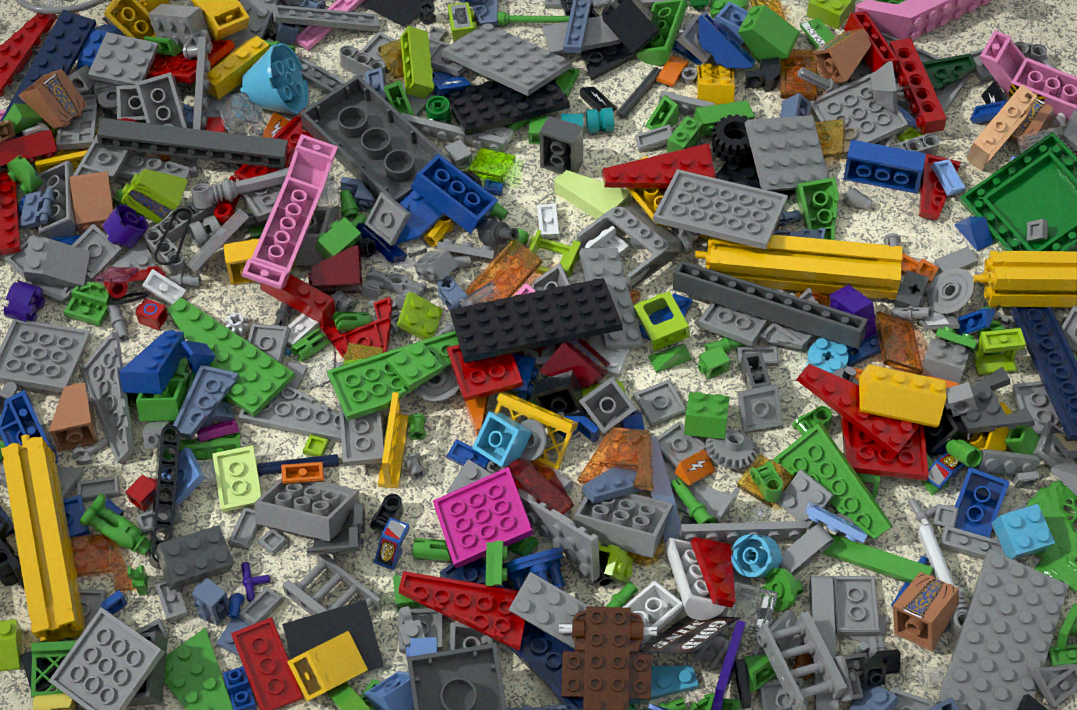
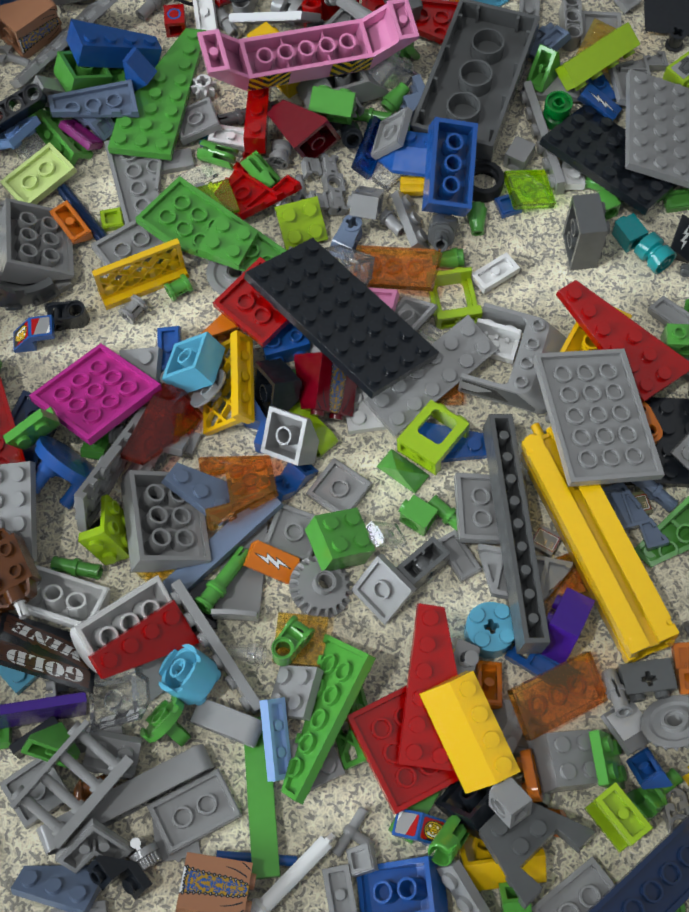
camera: 60 degrees right, 10 degrees up
(430, 549) = (46, 367): bright green arm -> none
(590, 194) = (553, 276): yellowish green slope -> none
(721, 387) = (386, 535): none -> clear plate
(808, 421) = (395, 652): bright green piece -> none

